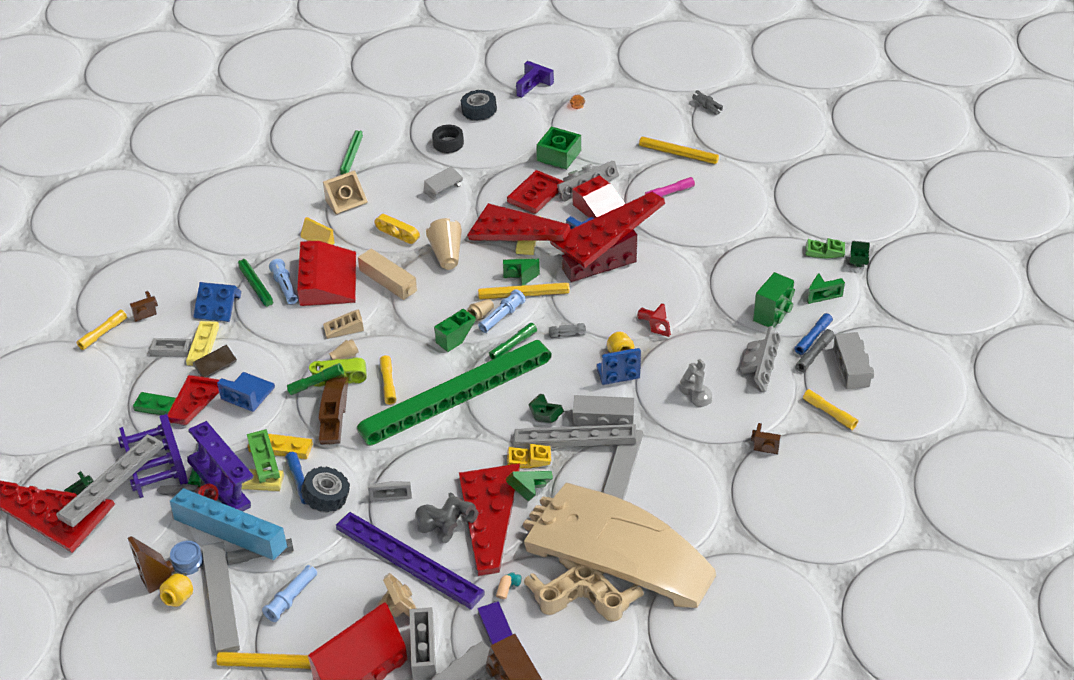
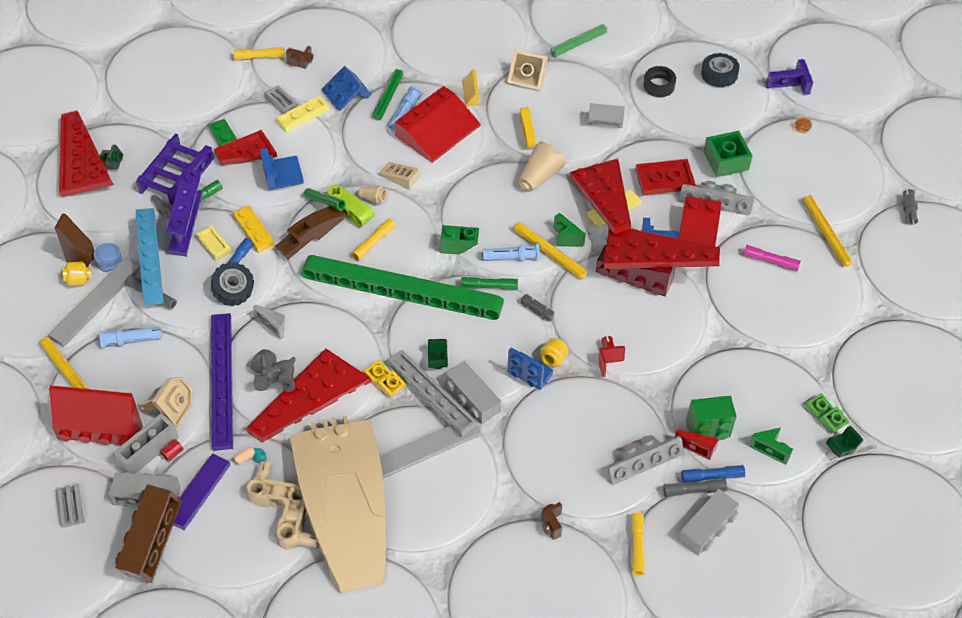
camera: 45 degrees right, 10 degrees up
(109, 480) = (125, 165): light grey tile -> none
(210, 491) = (162, 223): red cone -> none
(215, 361) = (290, 133): dark brown tile -> none
(263, 455) = (226, 226): bright green plate -> none
(387, 274) = (474, 158): tan brick -> none
(442, 634) = (171, 450): none -> red hinge
(480, 308) = (498, 239): tan cone -> none
(526, 481) = (348, 394): green slope -> none
(694, 385) = (562, 433): light grey piece -> none
(783, 323) = (698, 443): none -> red slope

